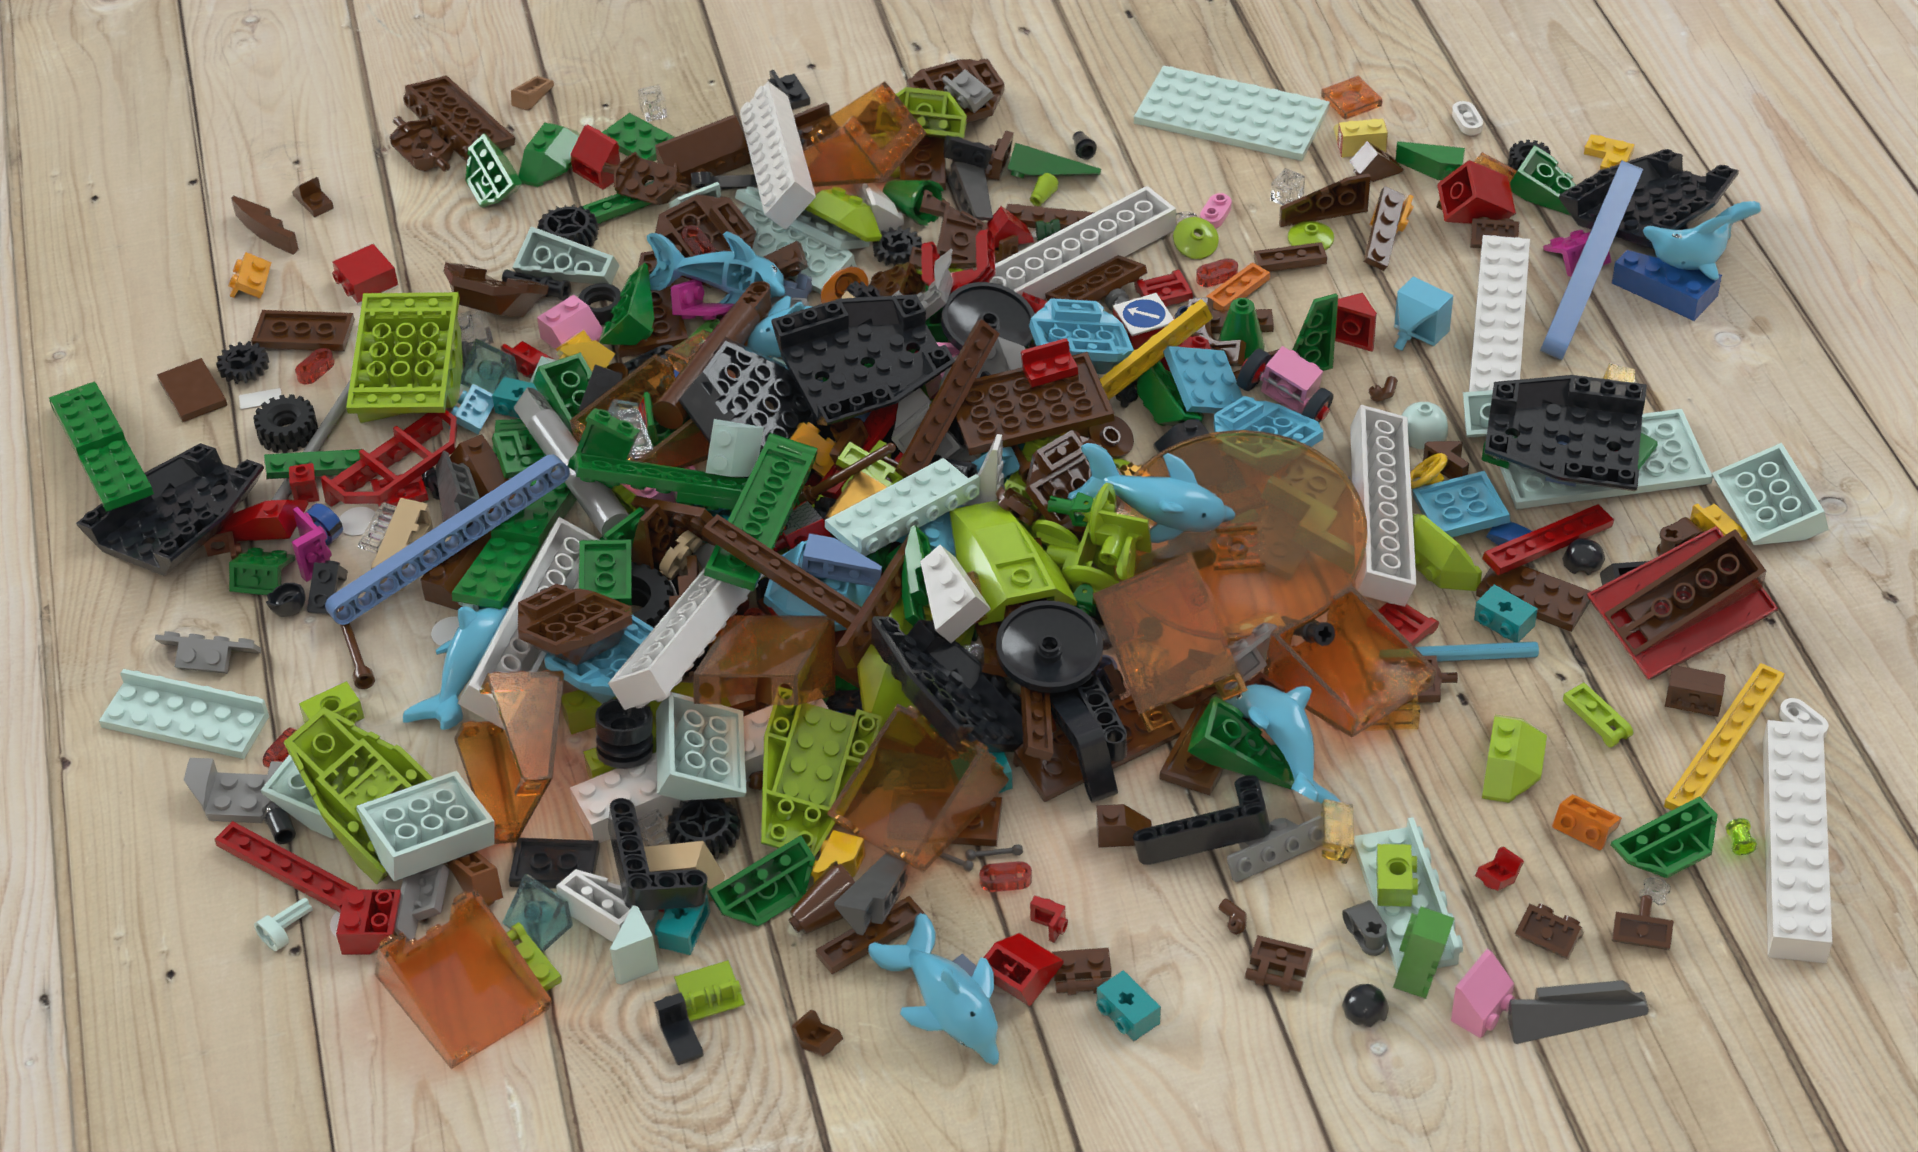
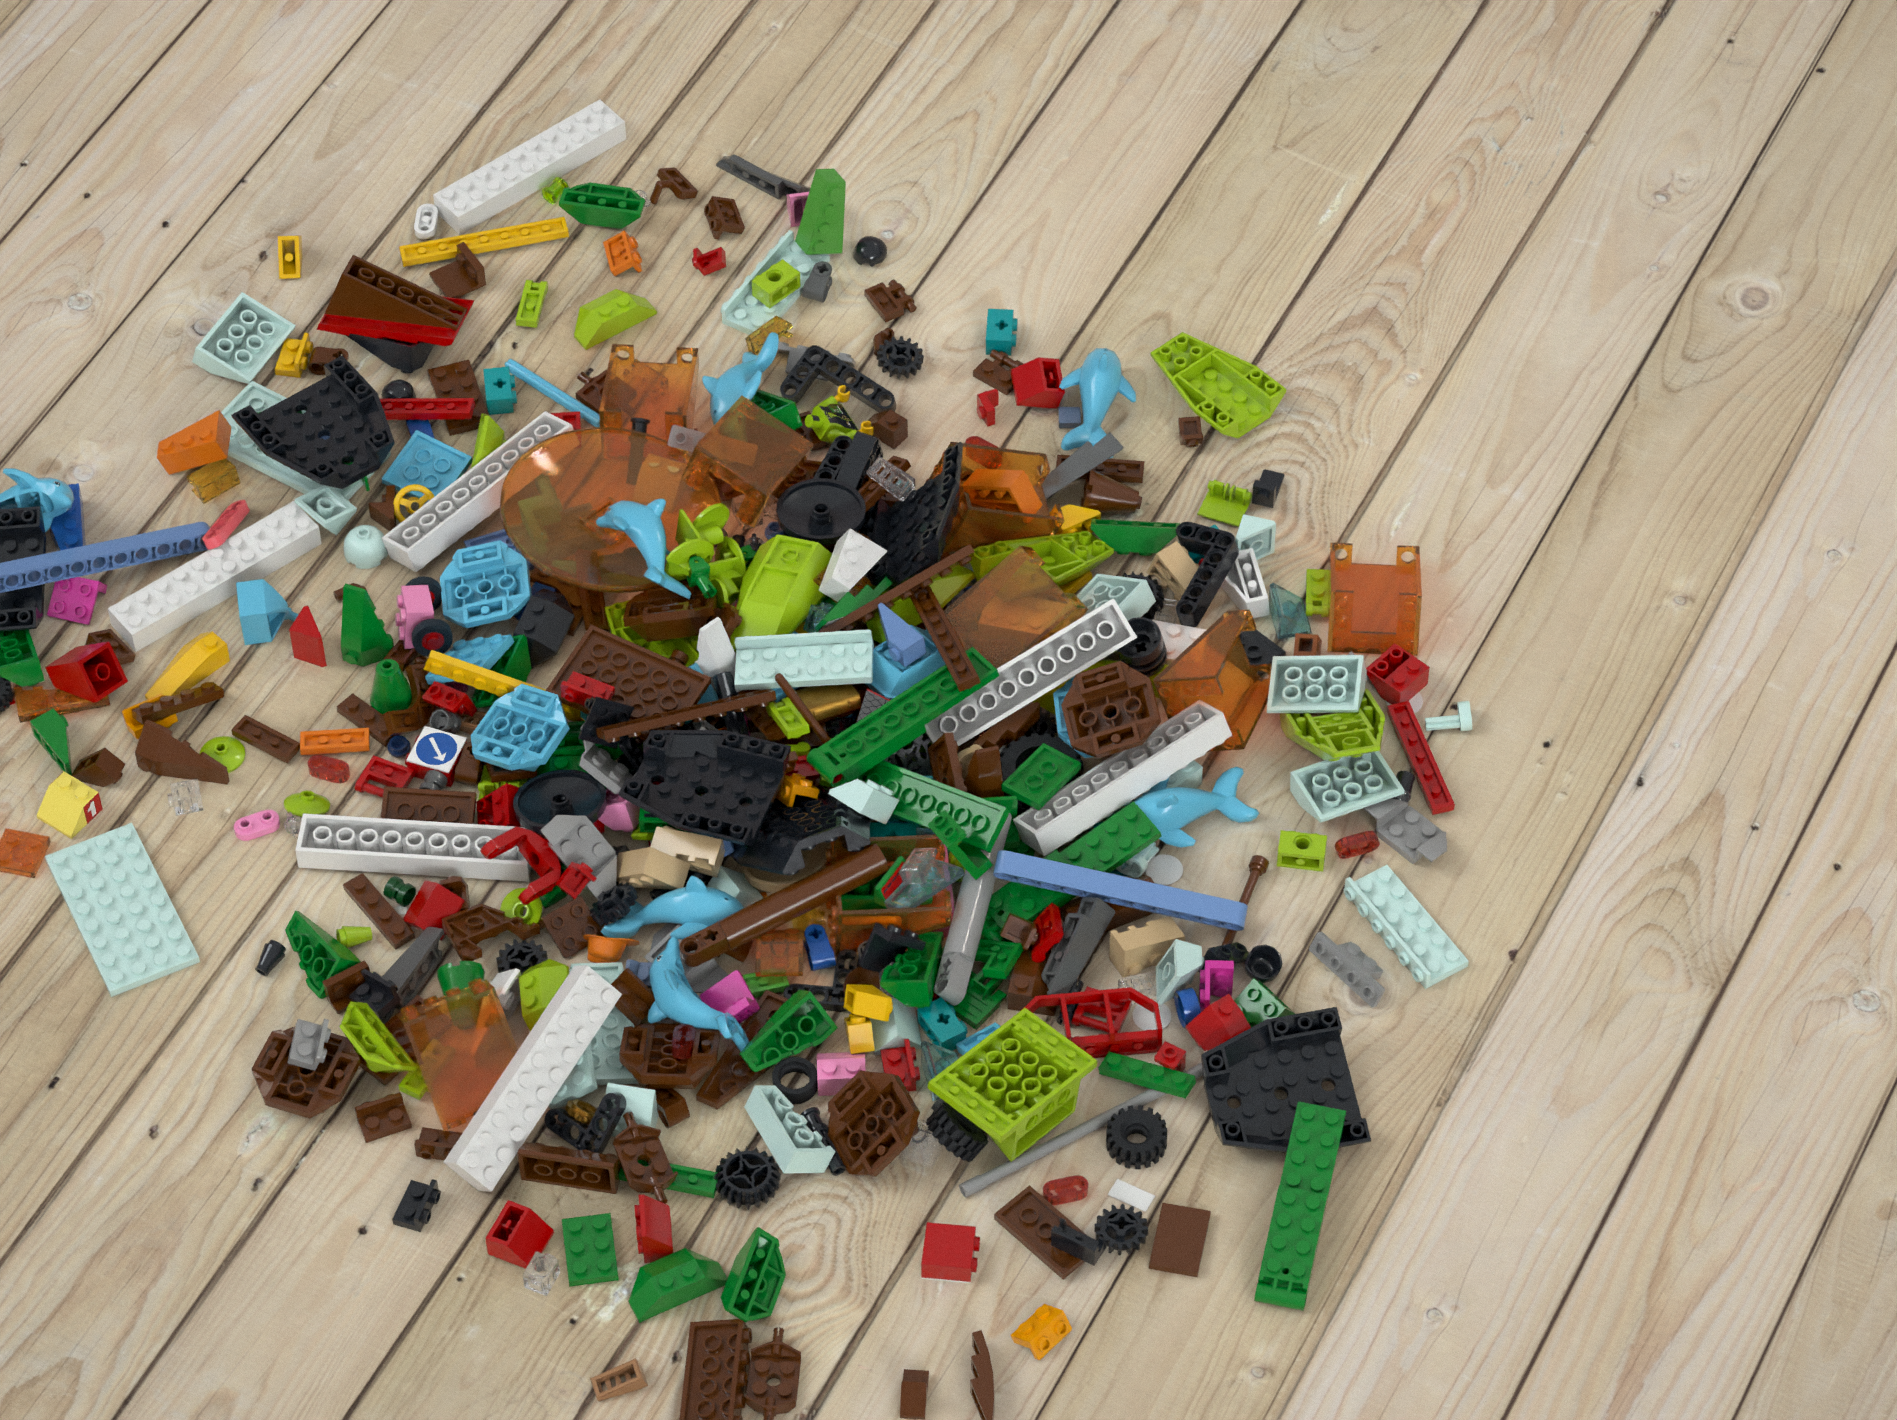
camera: 140 degrees left, 5 degrees up
(263, 321) = (1077, 1243): none -> black hinge
(348, 533) = (1177, 969): none -> light aqua slope
(481, 479) = (1050, 932): none -> red plate
(501, 477) = (1019, 931): none -> reddish brown bracket
(691, 106) = (518, 1235): none -> red slope
(733, 180) = (581, 1110): none -> pearl gold gear
(840, 1094) = (1218, 385): none -> lime wedge
(907, 283) = (575, 879): none -> red bracket
(907, 789) = (1002, 490): none -> orange wedge
(998, 362) = (601, 714): none -> black hinge
(1020, 717) = (894, 489): none -> clear slope
(1166, 783) = (832, 420): none -> torso
(1191, 904) = (900, 357): none -> black gear
(1423, 261) = (191, 665): none -> yellow wedge
(1540, 345) = (225, 524): none -> coral beam
(1664, 384) = (196, 444): none -> orange wedge
(1862, 599) = (290, 256): none -> yellow slope

